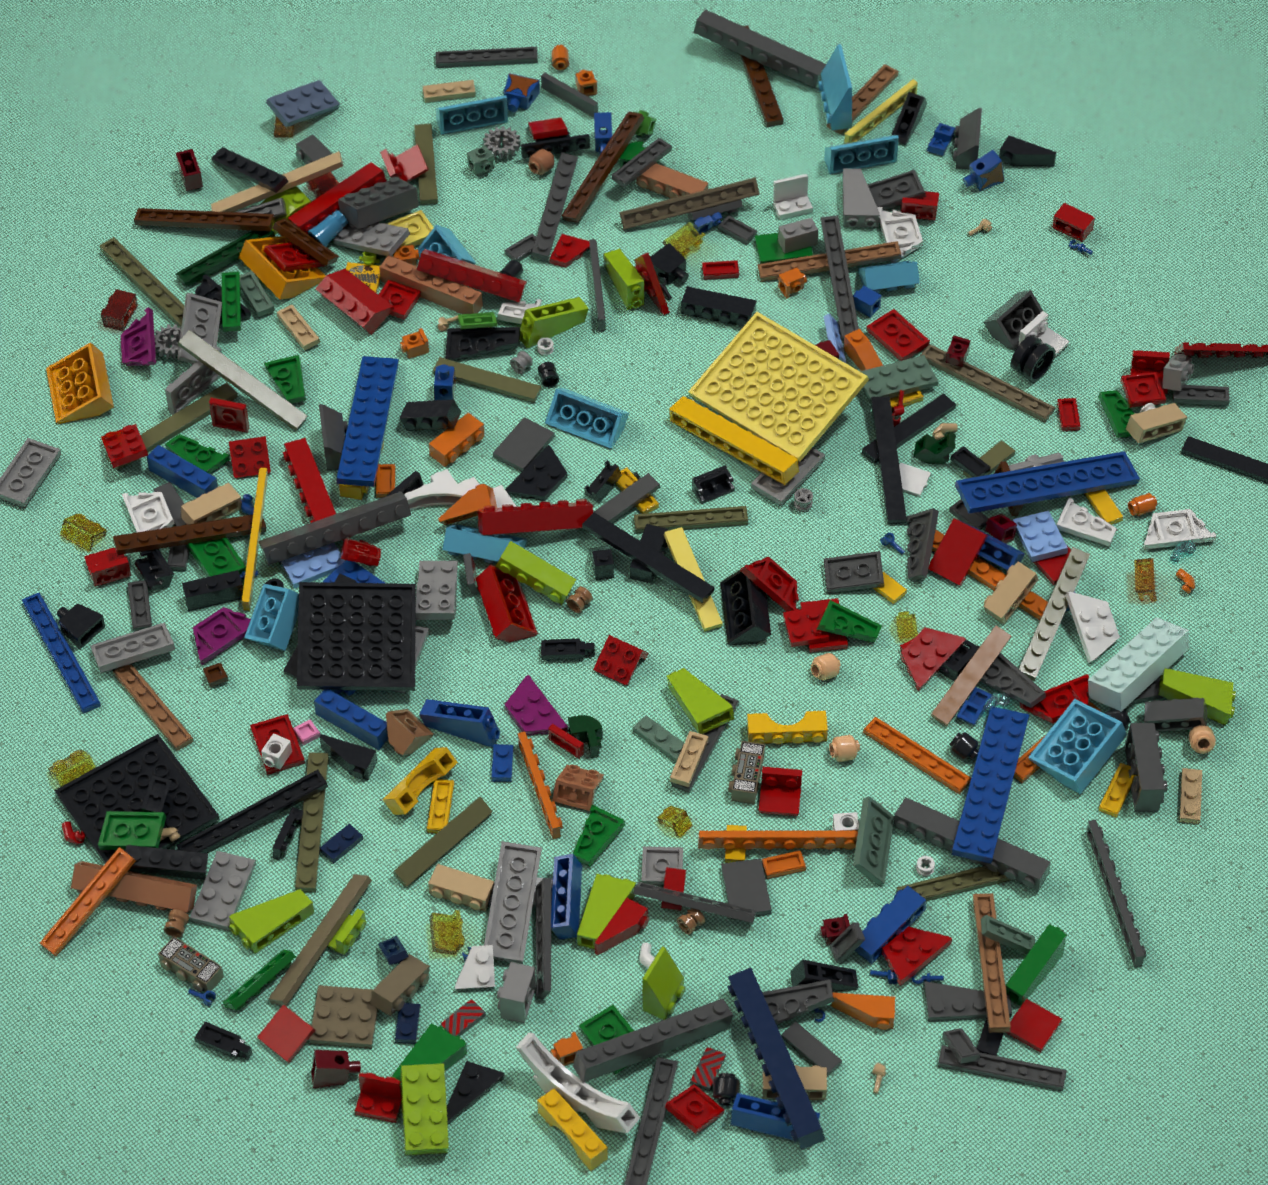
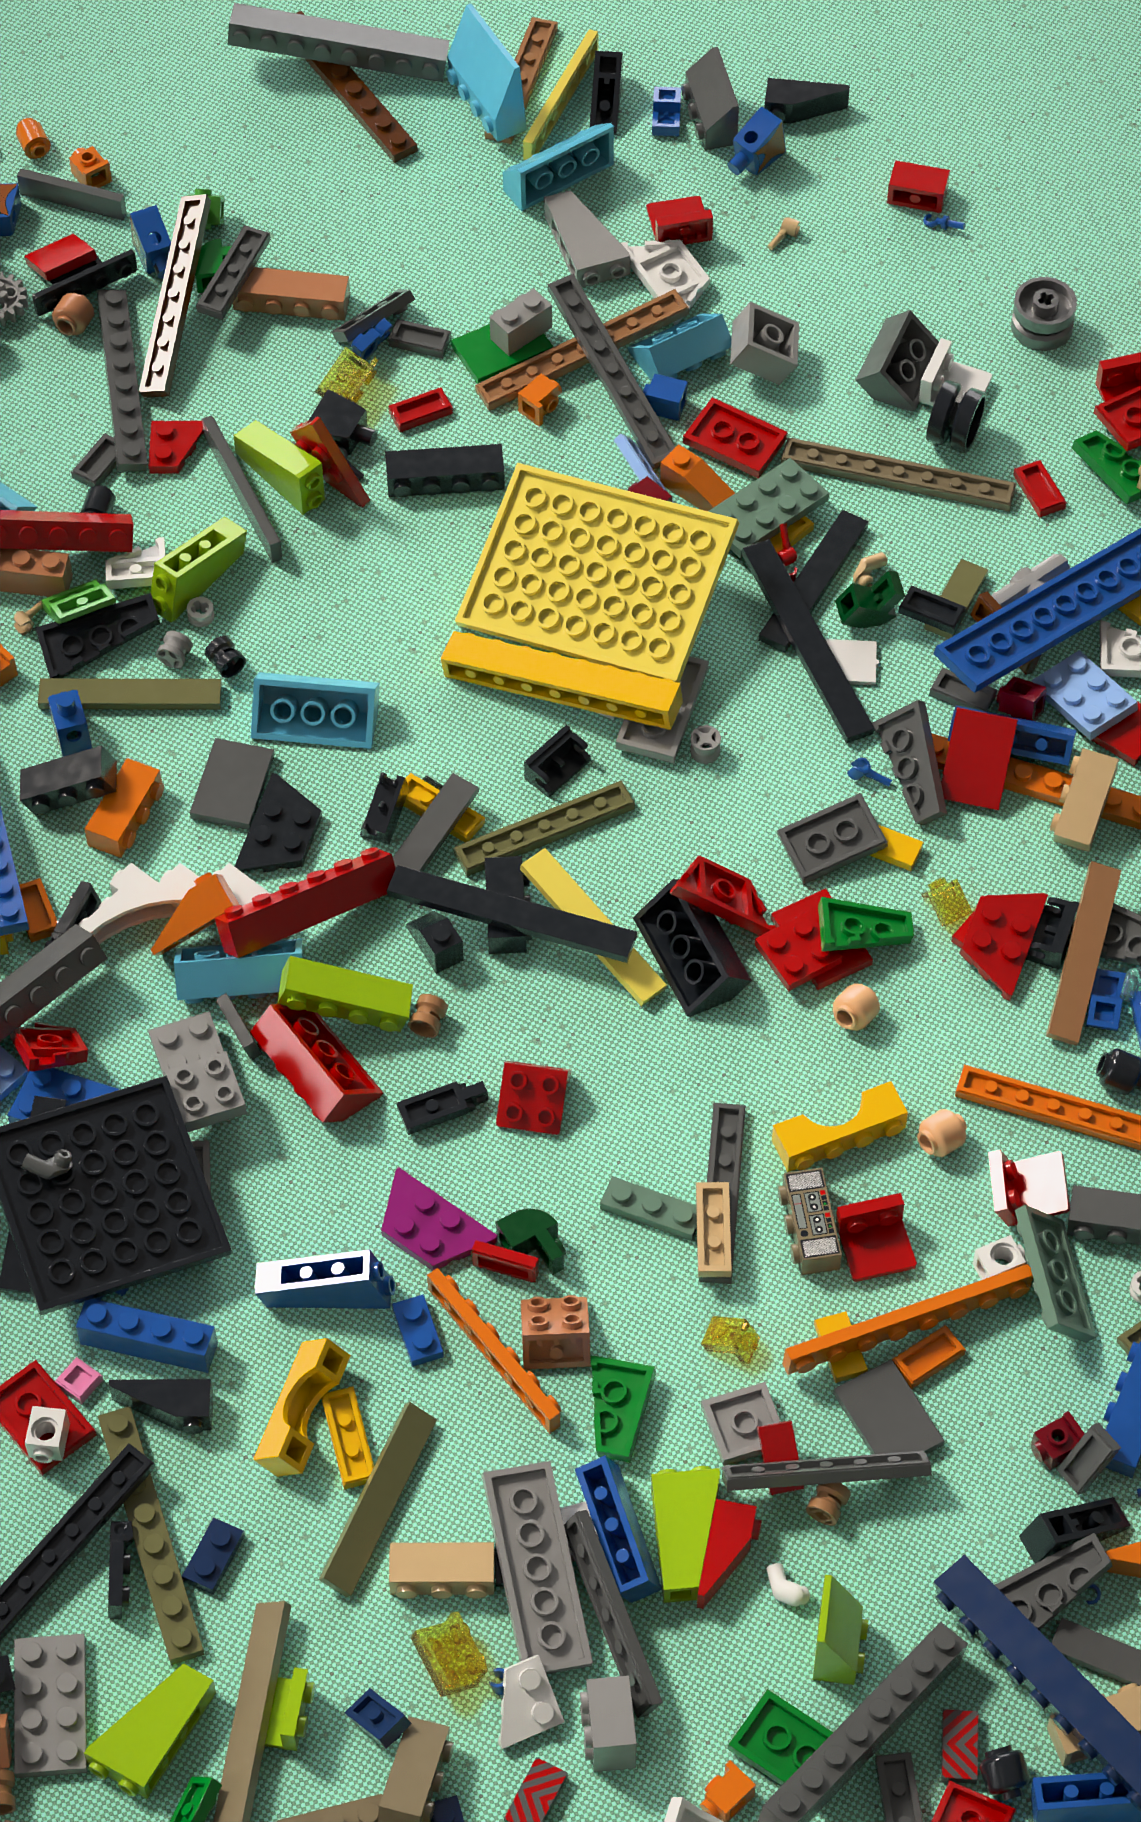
camera: 20 degrees left, 5 degrees up
(331, 612) = (51, 1168): none -> dark grey arm
(406, 731) = (244, 1328): medium nougat slope -> none
(689, 203) = (331, 317): dark tan tile -> none
(699, 702) = (687, 1128): lime slope -> none
(791, 197) = (482, 265): white bracket -> none
(883, 789) = (1030, 1182): none -> bracket
(890, 191) = (636, 206): dark grey tile -> none
(937, 286) = (764, 343): none -> light grey brick
(958, 351) = (839, 437): dark red brick -> none
(1115, 315) = (1043, 313): none -> flat silver wheel

